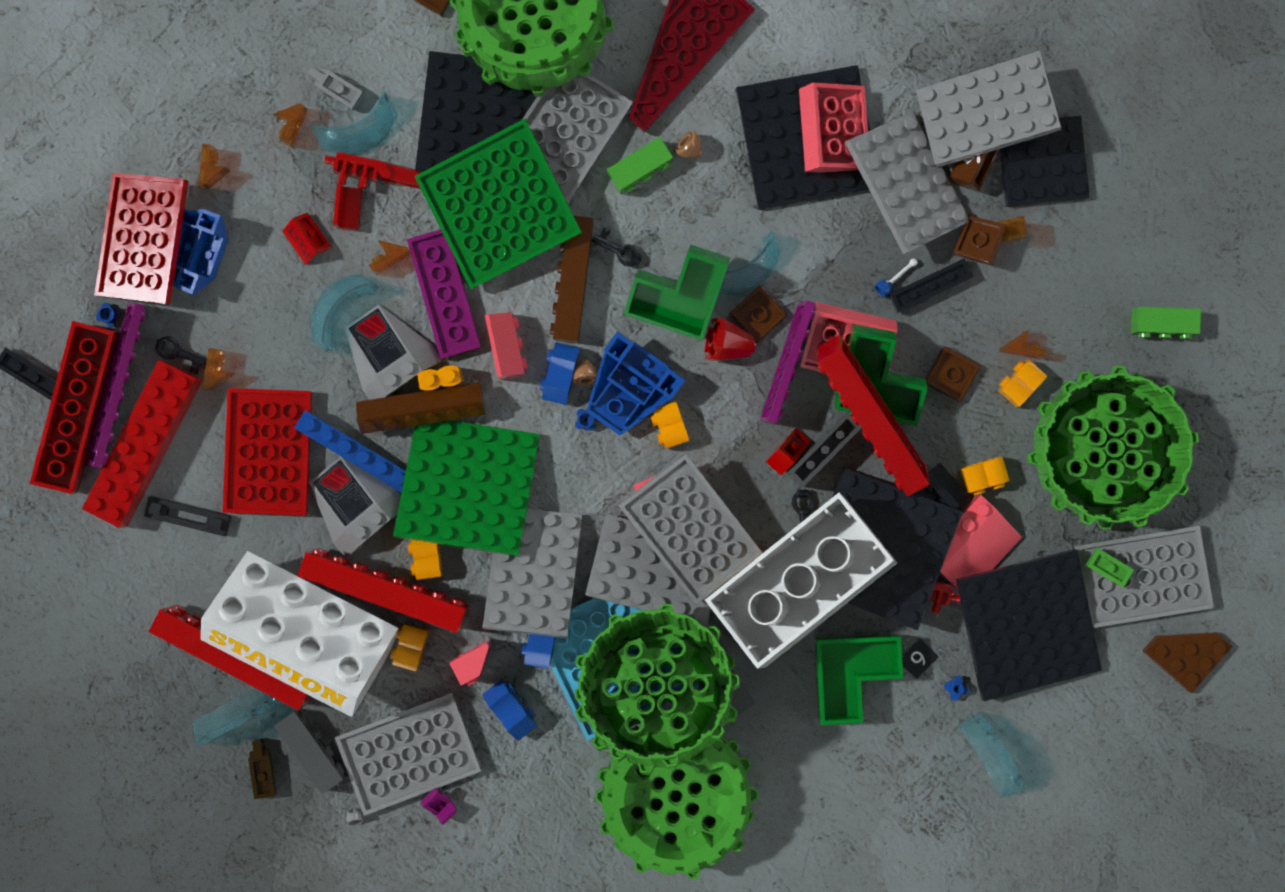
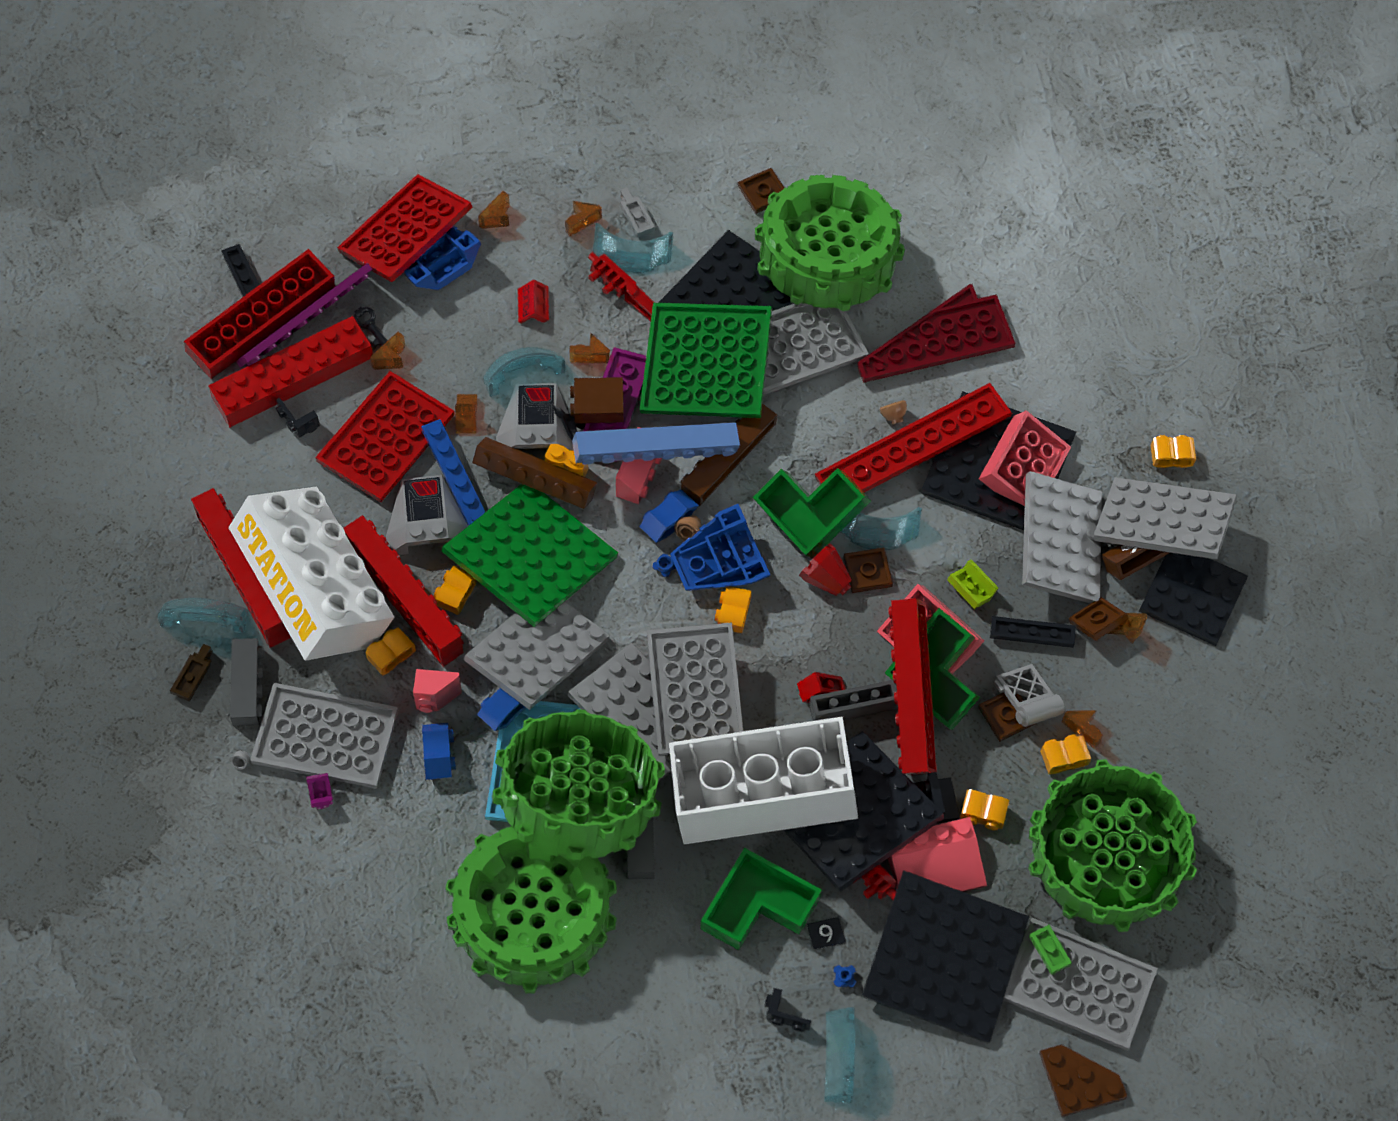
camera: 25 degrees right, 25 degrees down
(102, 314) = (336, 263): blue plate -> none
(192, 485) = (301, 426): none -> black bracket
(215, 524) = (302, 465): black container -> none
(321, 384) = (466, 413): none -> clear orange slope
(347, 207) = (581, 299): red panel -> none
(417, 339) = (568, 422): none -> black piece
(429, 304) = (597, 400): none -> reddish brown brick
(511, 323) = (655, 442): none -> medium blue brick
(619, 250) = (782, 455): black piece -> none
(640, 166) = (842, 402): bright green brick -> none
(729, 166) = (922, 439): none -> red plate
(785, 369) = (871, 611): magenta plate -> none
(856, 274) = (973, 584): none -> lime bracket
(885, 286) = (991, 609): hinge -> none
(914, 747) = (779, 1018): none -> black bracket
(952, 32) = (1173, 451): none -> light orange brick
(978, 357) = (1039, 706): none -> light grey piece
(1165, 322) = (1227, 779): bright green brick -> none

